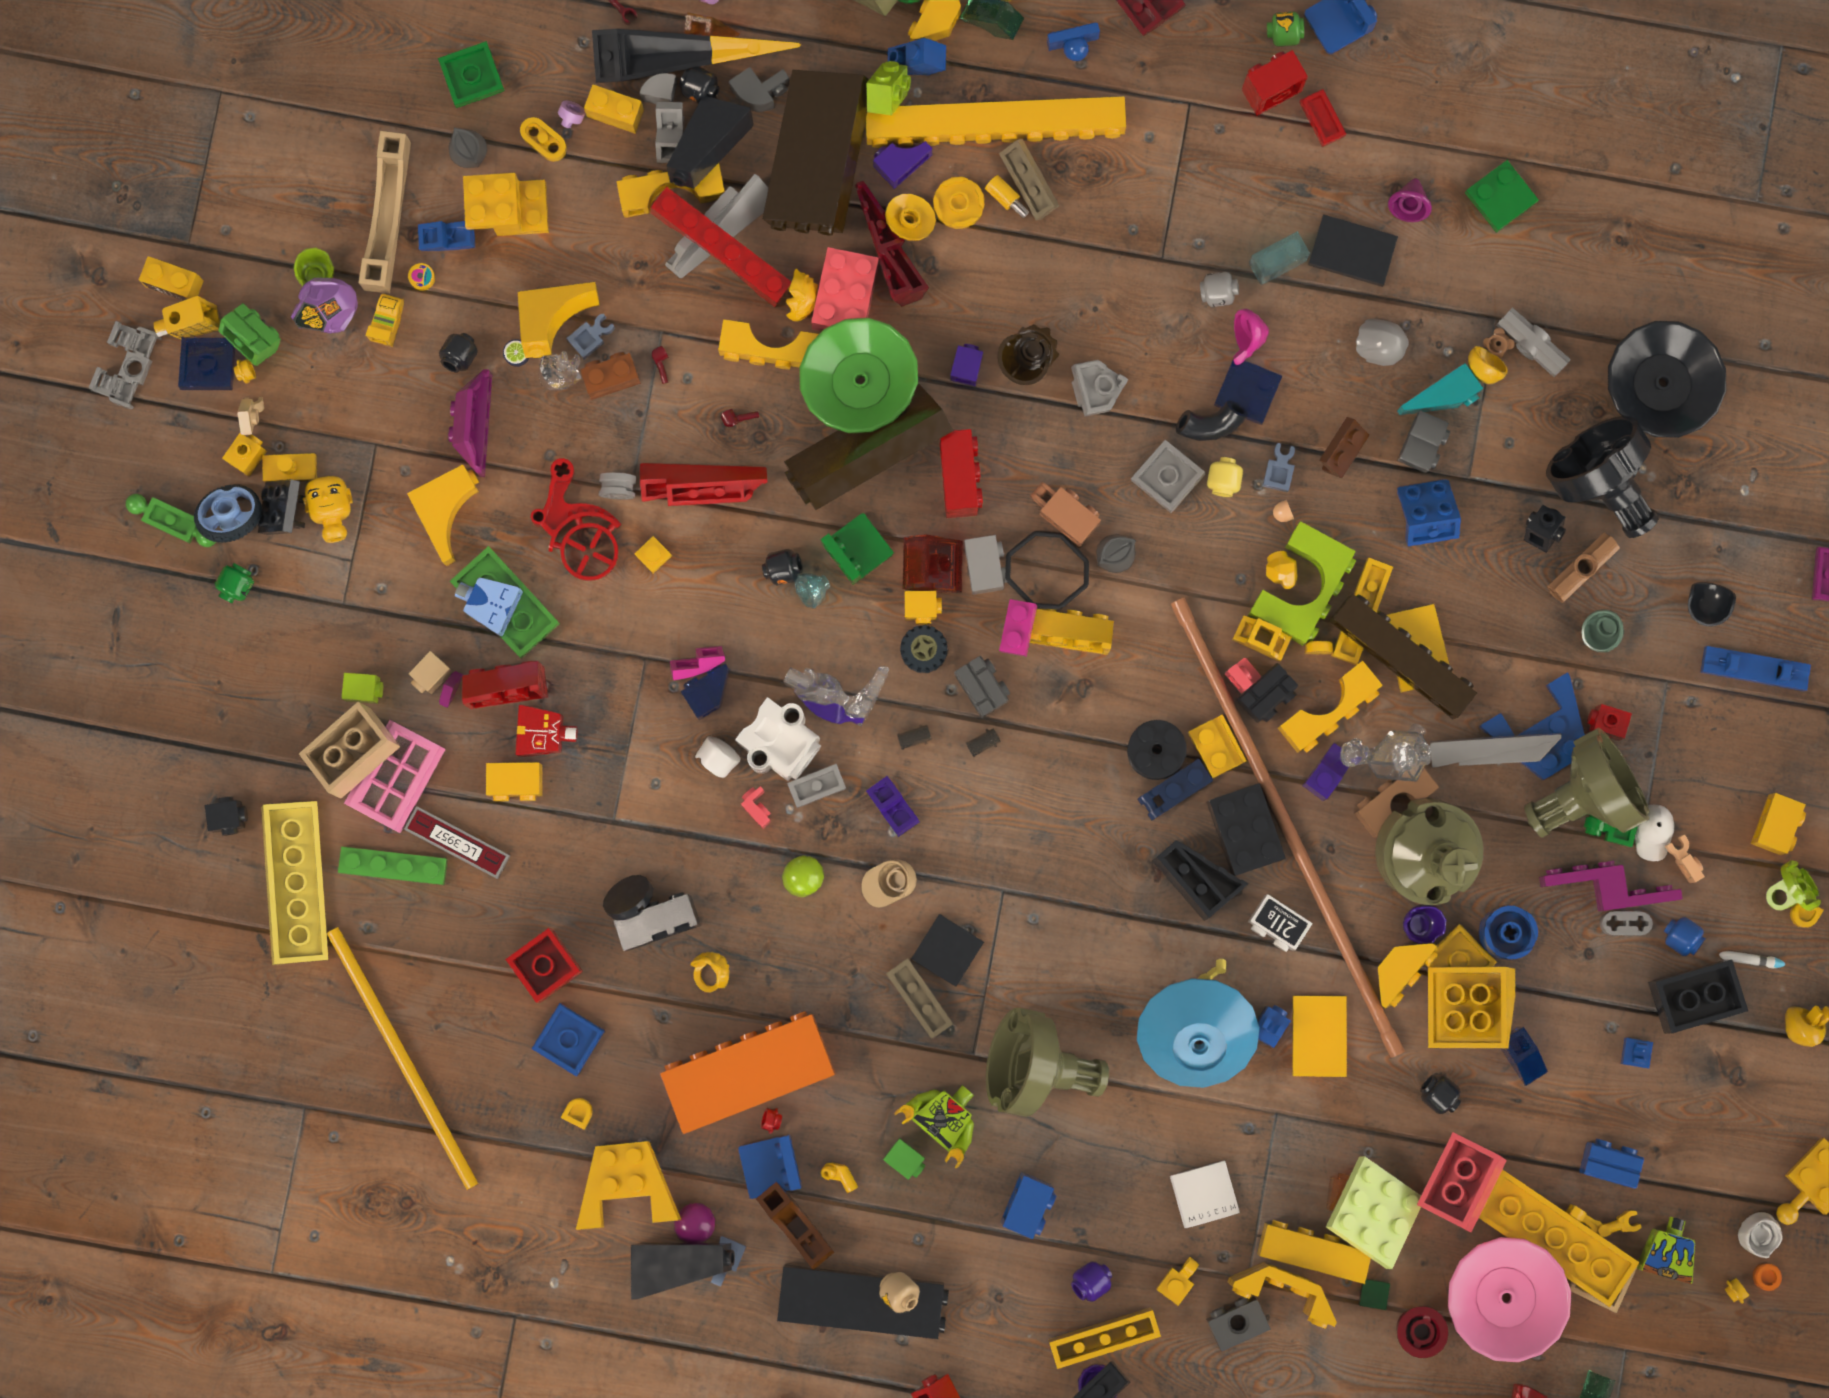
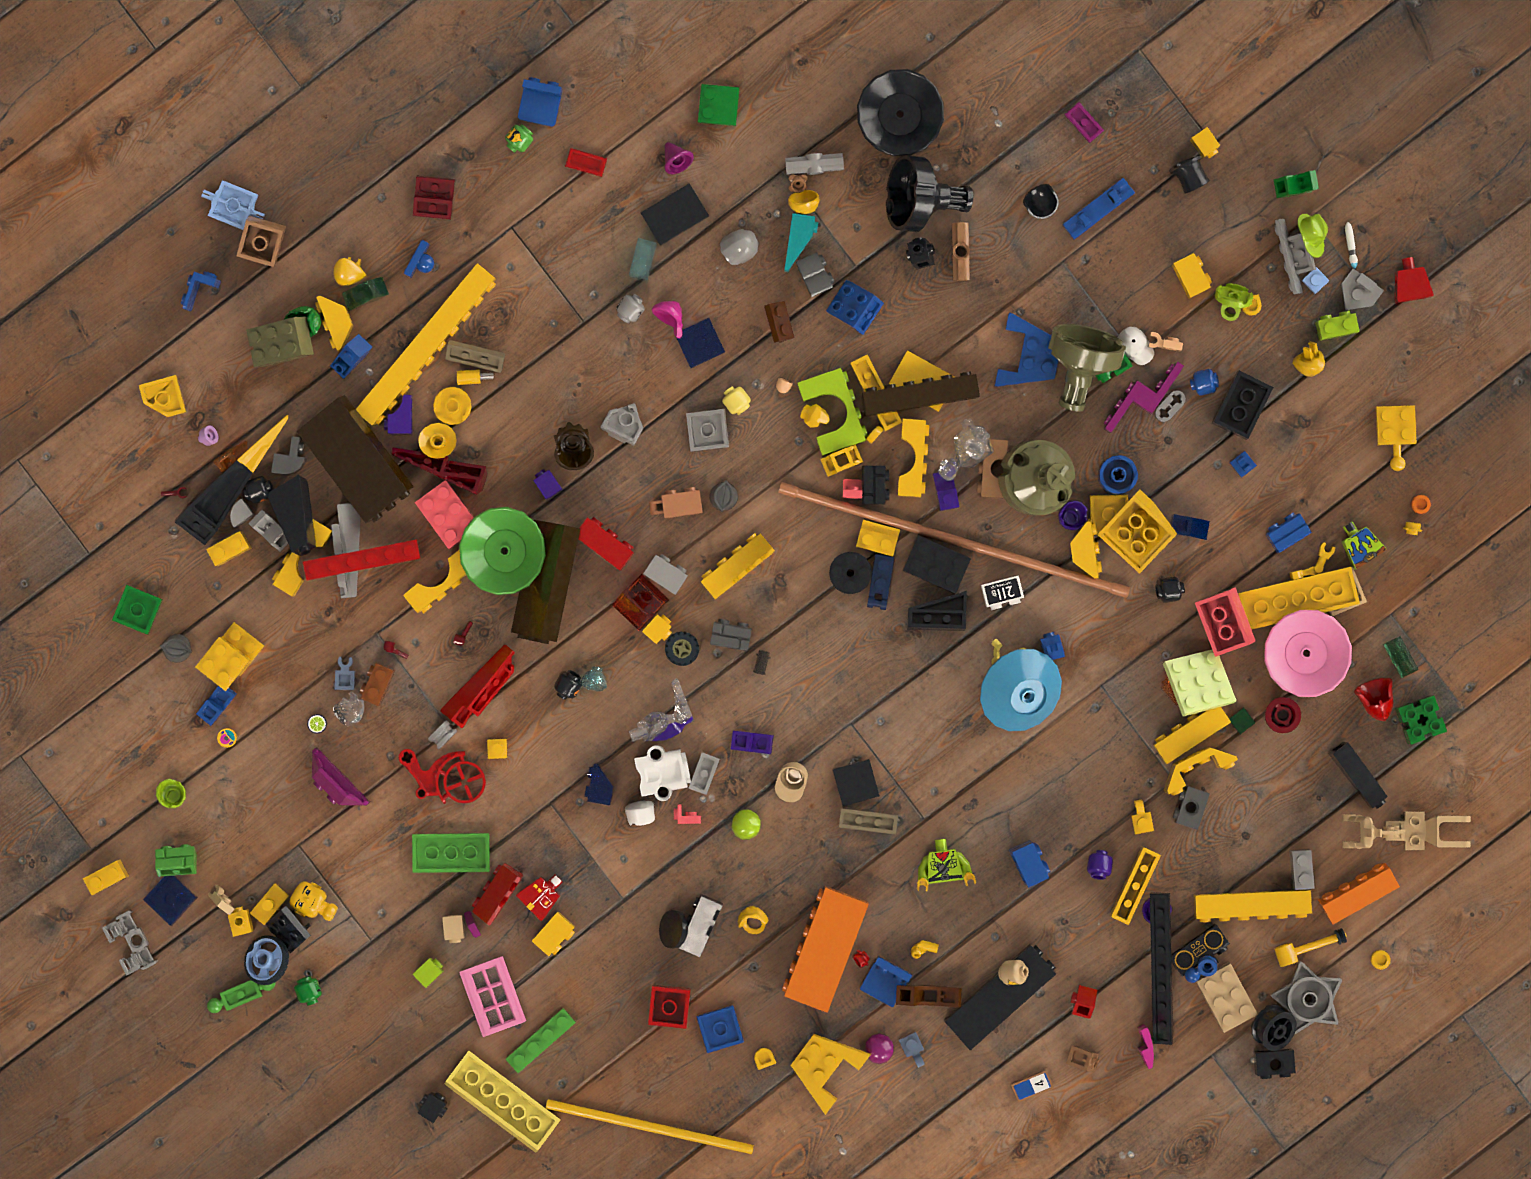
camera: 50 degrees left, 5 degrees up
(188, 319) = (137, 887): yellow torso -> none
(244, 371) = (193, 881): yellow plate -> none
(325, 305) = (197, 805): medium lavender helmet -> none
(349, 750) = (458, 1008): tan brick -> none
(386, 320) = (234, 778): yellow leg -> none
(390, 185) = (174, 725): tan arch -> none
(439, 503) = (364, 841): yellow arch -> none
(457, 842) = (559, 994): tile -> none
(458, 352) = (289, 755): black head -> none
(490, 603) = (445, 862): light blue torso -> none
(544, 140) = (210, 601): yellow plate -> none
(545, 312) = (310, 688): yellow arch -> none
(571, 113) = (209, 574): lavender tile -> none
(672, 1265) = (890, 1080): black slope -> none
(705, 660) = (581, 772): dark pink slope -> none
(804, 296) = (429, 540): yellow hair -> none
(857, 548) = (594, 634): green bracket -> none
(887, 88) = (355, 389): lime brick -> none
(905, 1159) = (946, 906): bright green brick -> none
(914, 737) = (725, 696): clear smoke pin -> none
(1018, 627) = (717, 588): dark pink plate -> none
(1028, 1064) = (956, 795): olive piece -> none
(1070, 545) = (700, 517): black piece -> none
(1204, 1194) = (1108, 763): white slope -> none
(1211, 426) = (702, 381): black cylinder -> none
(1274, 82) = (543, 173): red brick -> none
(1278, 472) = (760, 369): sand blue plate -> none
(1319, 1036) = (1081, 625): yellow tile -> none
(1492, 749) = (1013, 392): light grey wedge -> none
(1602, 630) = (1004, 273): sand green piece -> none
(1610, 720) = (1055, 315): red brick -> none
(1760, 1234) = (1395, 487): white hair -> none
(1771, 962) = (1248, 357): white piece -> none

